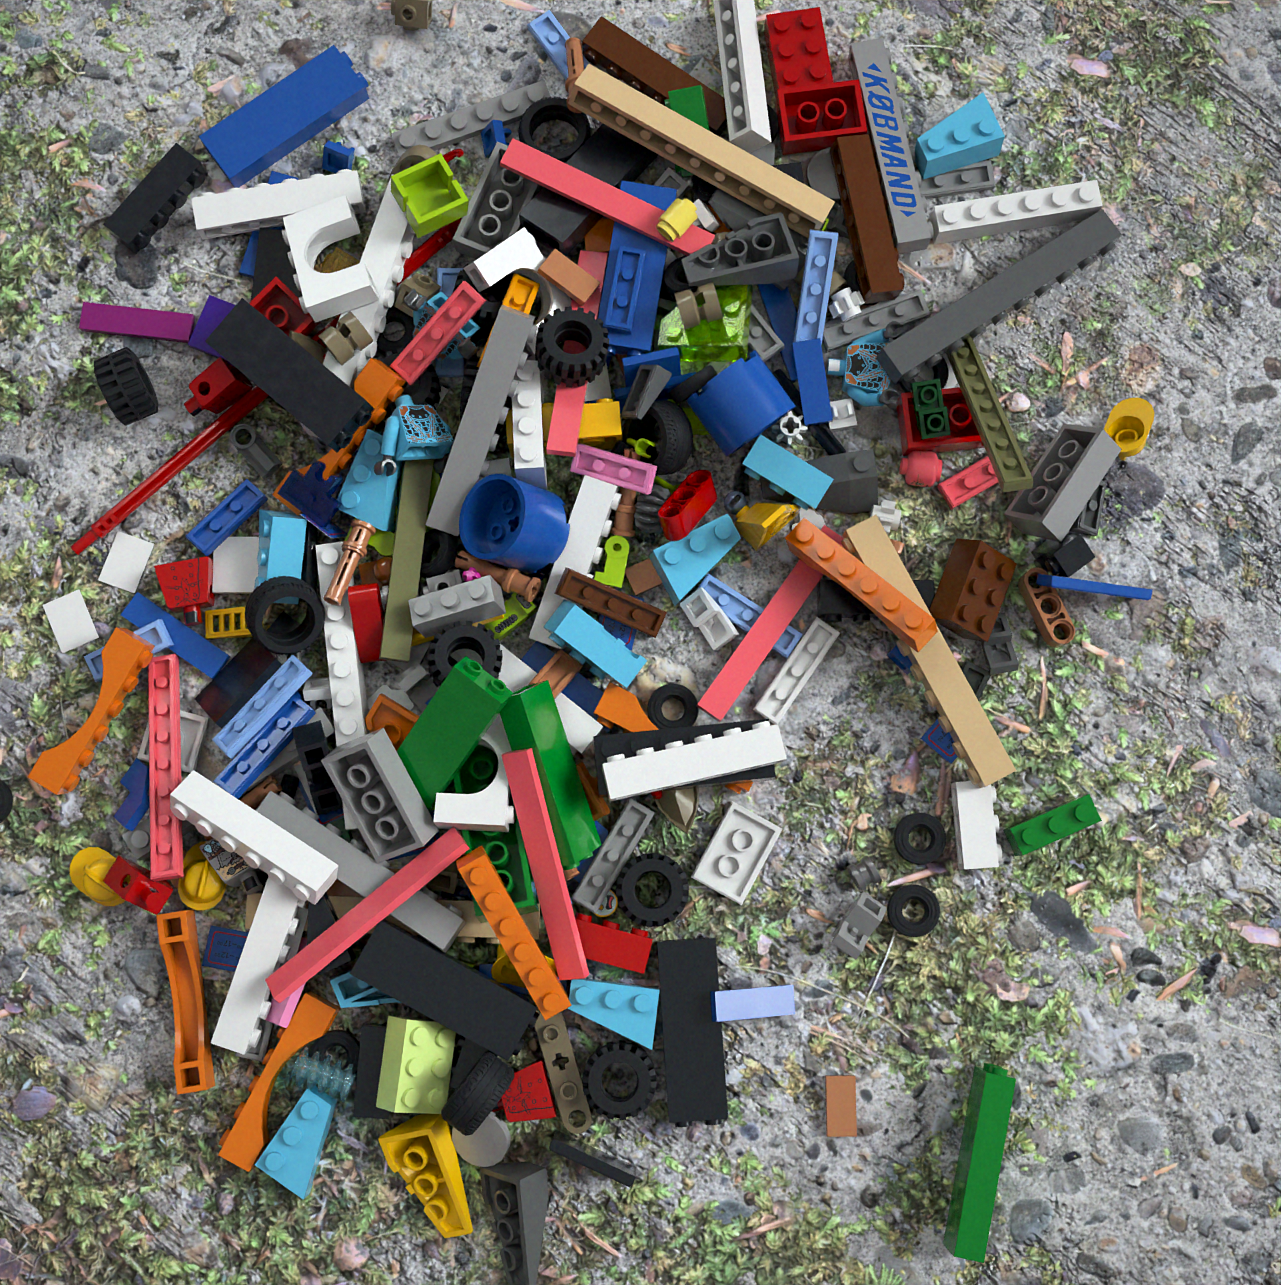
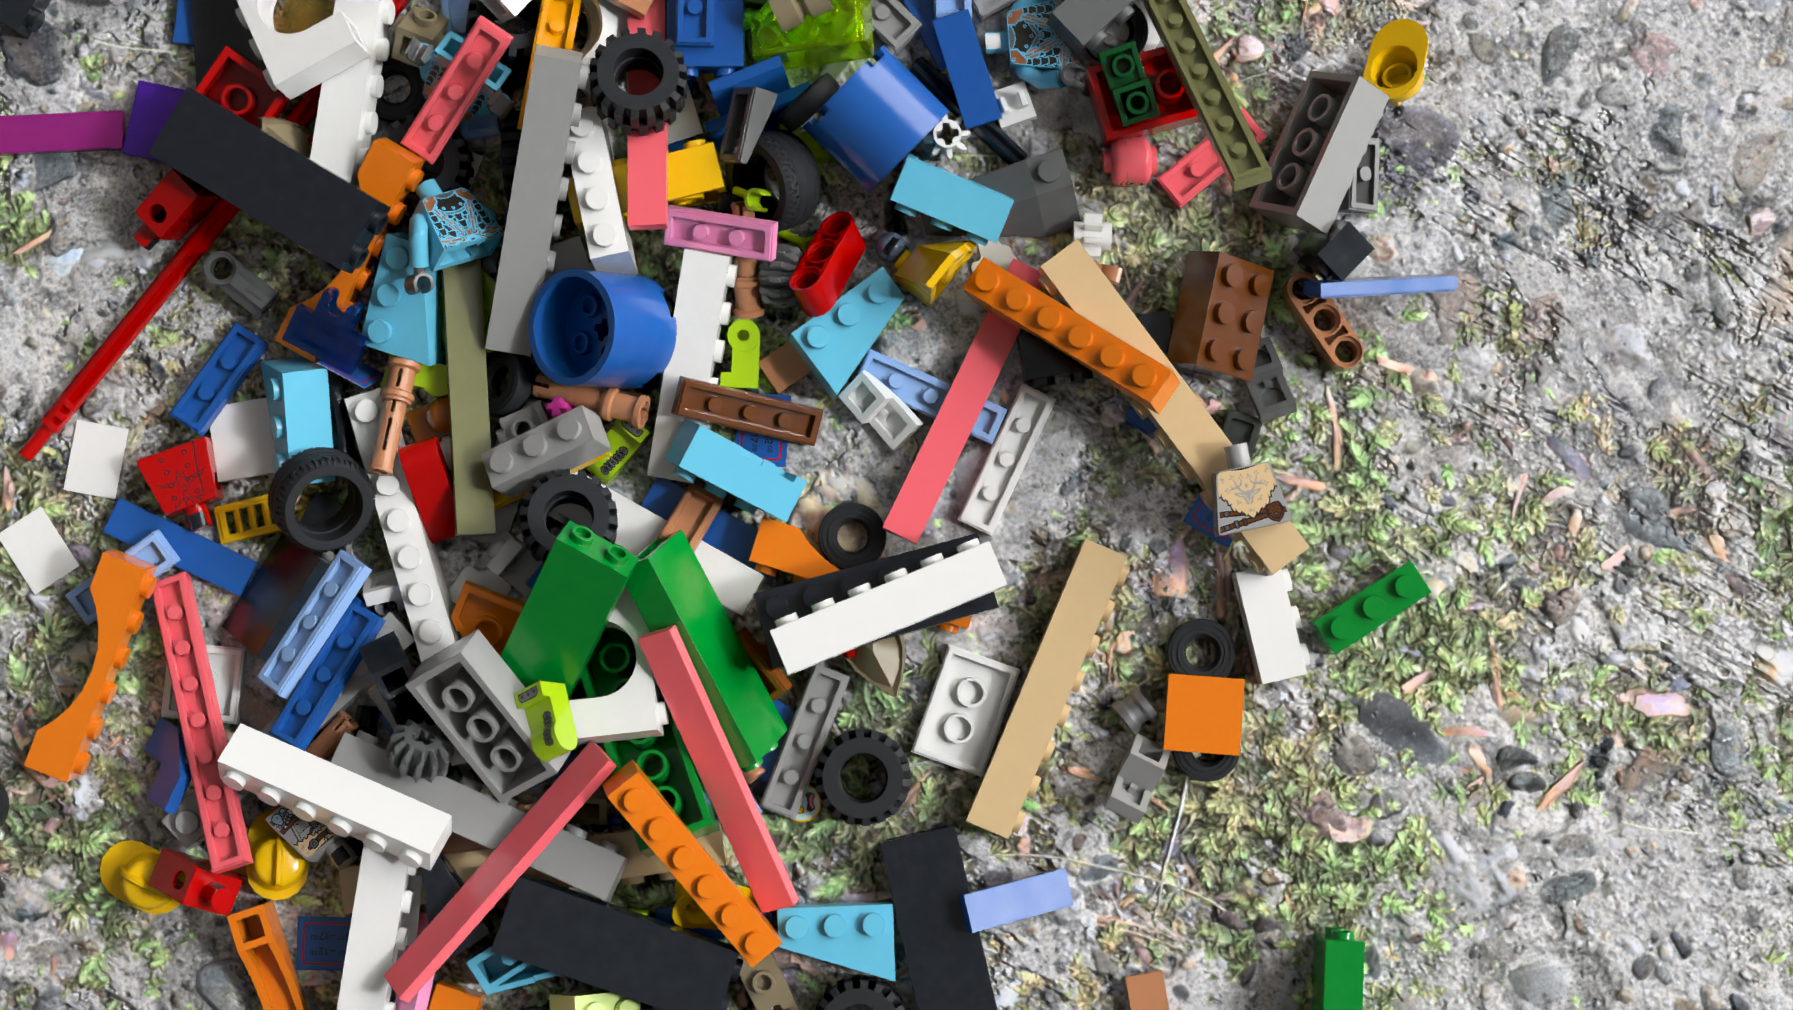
camera: 10 degrees left, 5 degrees up
(125, 386) = (52, 226): black tyre -> none
(323, 813) = (419, 750): none -> dark grey gear
(349, 328) = (334, 133): dark tan wheel -> none
(424, 803) = (548, 719): none -> lime leg
(614, 946) = (824, 856): red brick -> none
(799, 847) = (1046, 688): none -> tan brick
(916, 884) = (1203, 714): none -> orange tile
(975, 722) = (1246, 494): none -> torso

